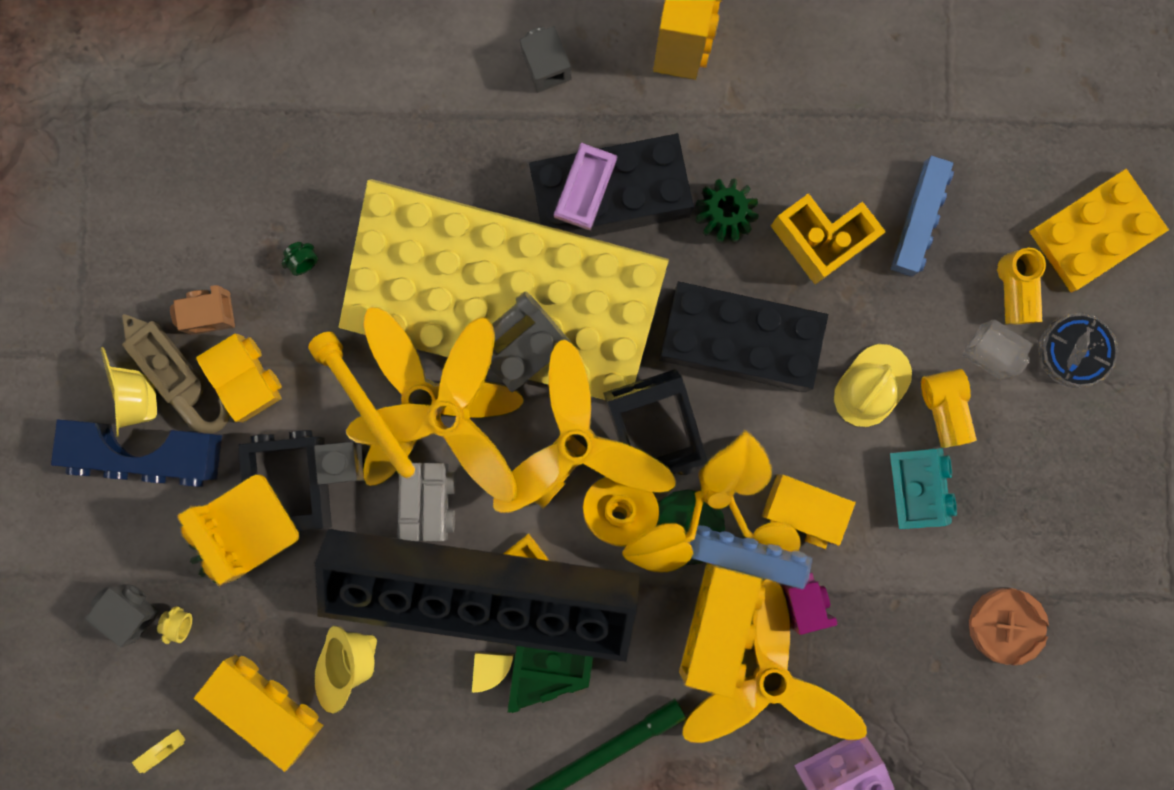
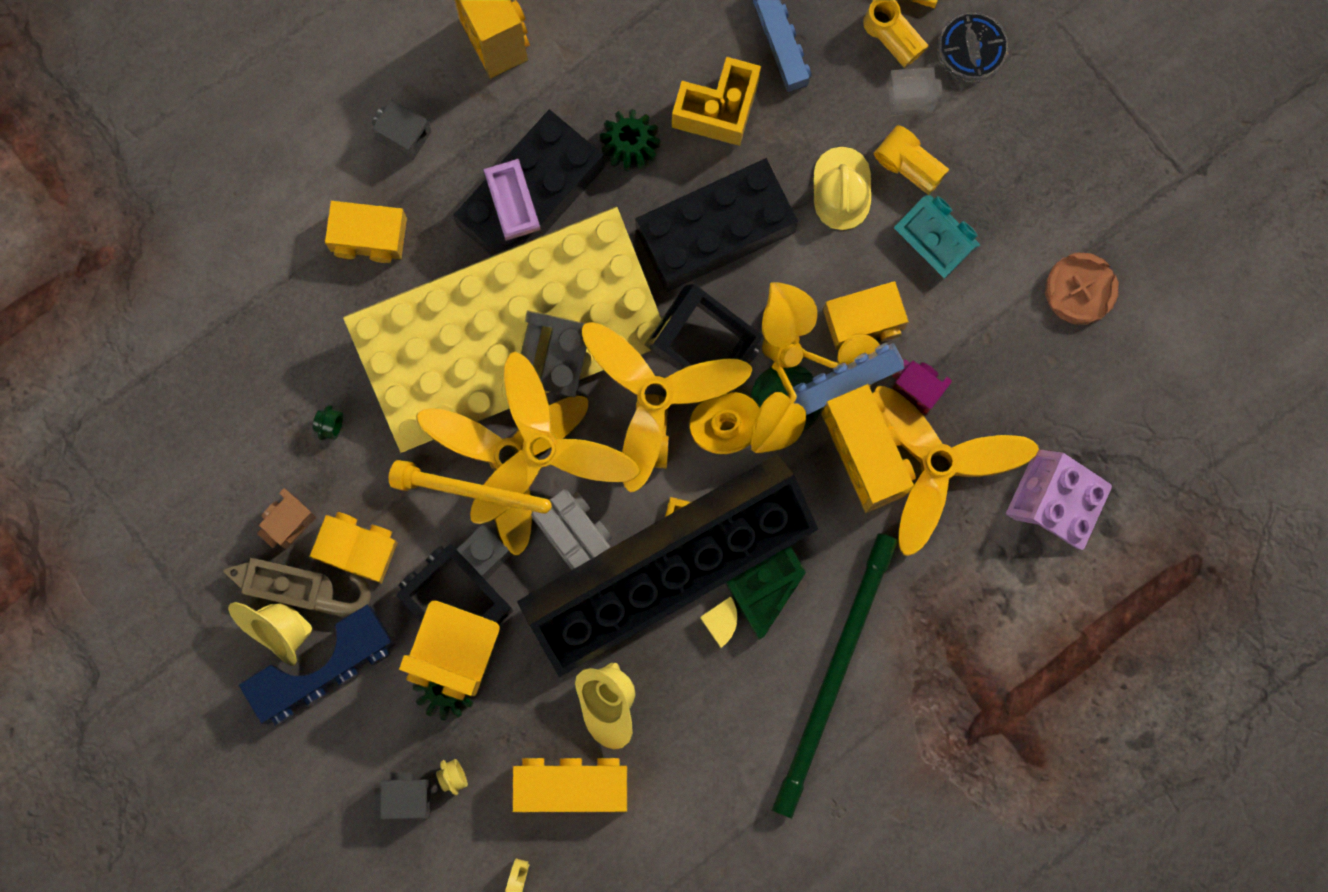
camera: 40 degrees left, 5 degrees down
(451, 121) = (365, 231): none -> yellow brick

